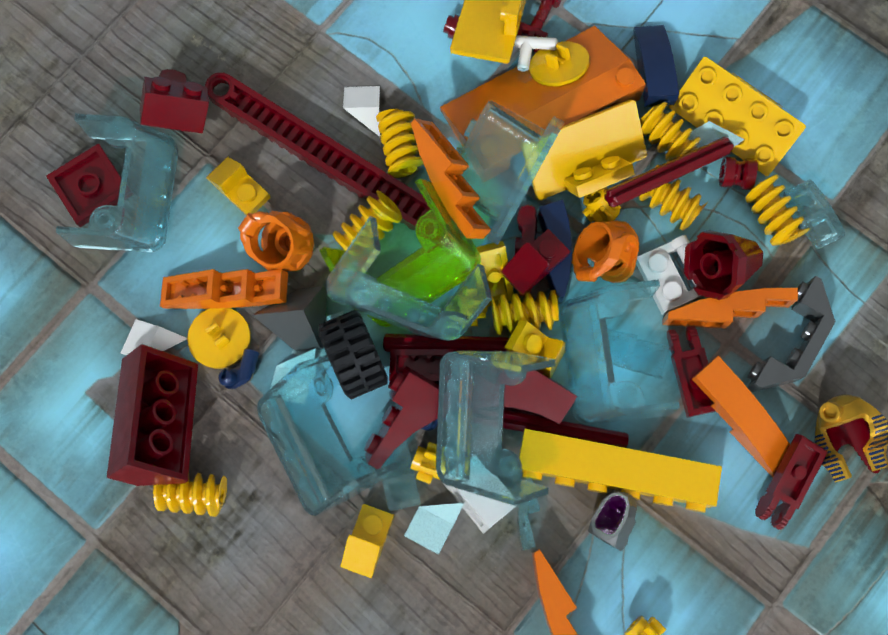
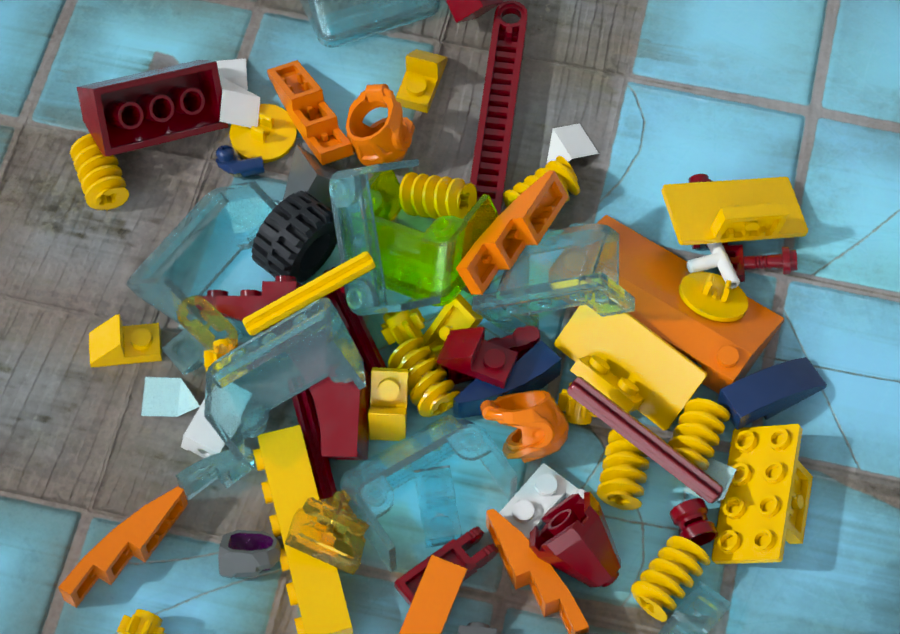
camera: 60 degrees right, 15 degrees down
(185, 345) = (238, 105): none -> white sticker
(406, 458) = (213, 318): none -> clear yellow beam
(429, 367) = (309, 293): none -> yellow axle
(636, 448) = (329, 532): none -> clear yellow slope

